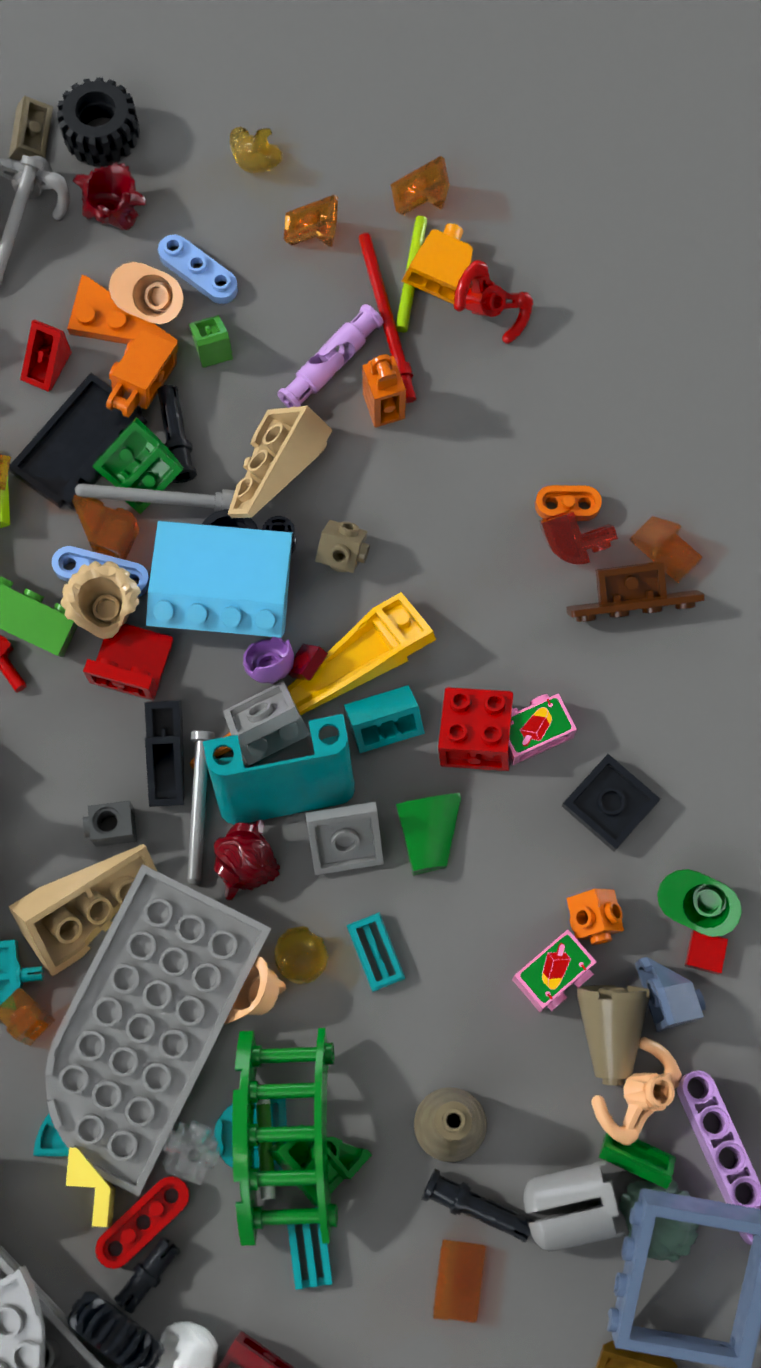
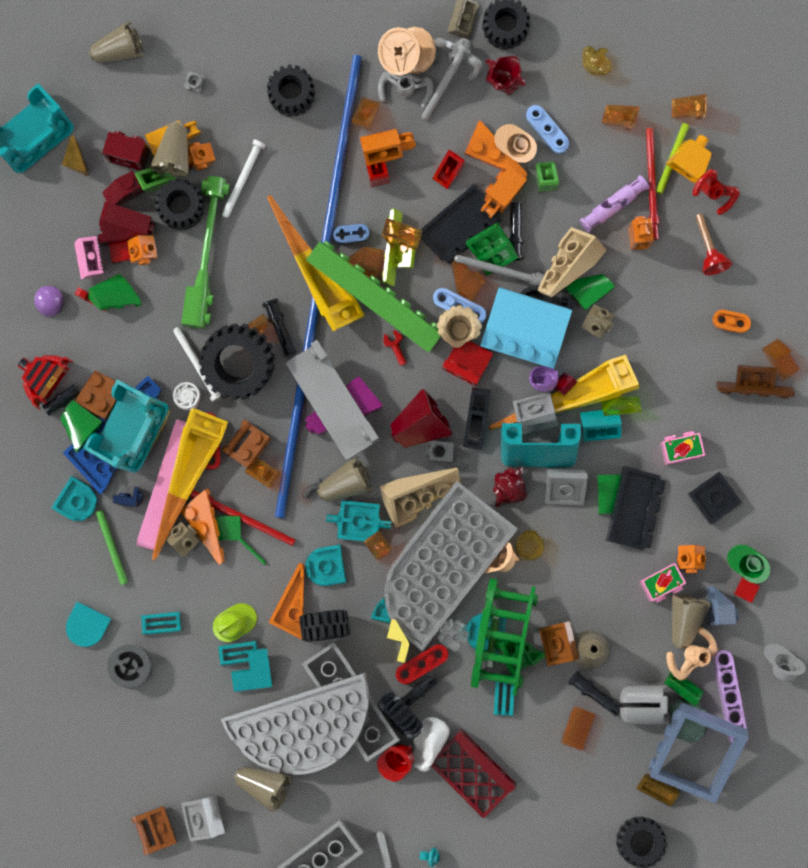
camera: 15 degrees right, 10 degrees up
(63, 779) = (420, 422): none -> dark red slope
(198, 807) = (490, 450): light grey bar -> none
(317, 501) = (589, 289): none -> green slope
(386, 980) = (562, 555): teal tile -> none
(389, 1125) = (558, 643): none -> dark orange plate
(412, 676) = (621, 405): none -> clear neon green slope
(474, 849) = (634, 508): none -> black hinge
(475, 729) = (650, 442): red bracket -> none
(518, 413) = (715, 261): none -> red piece
(567, 542) = (726, 347): clear red brick -> none

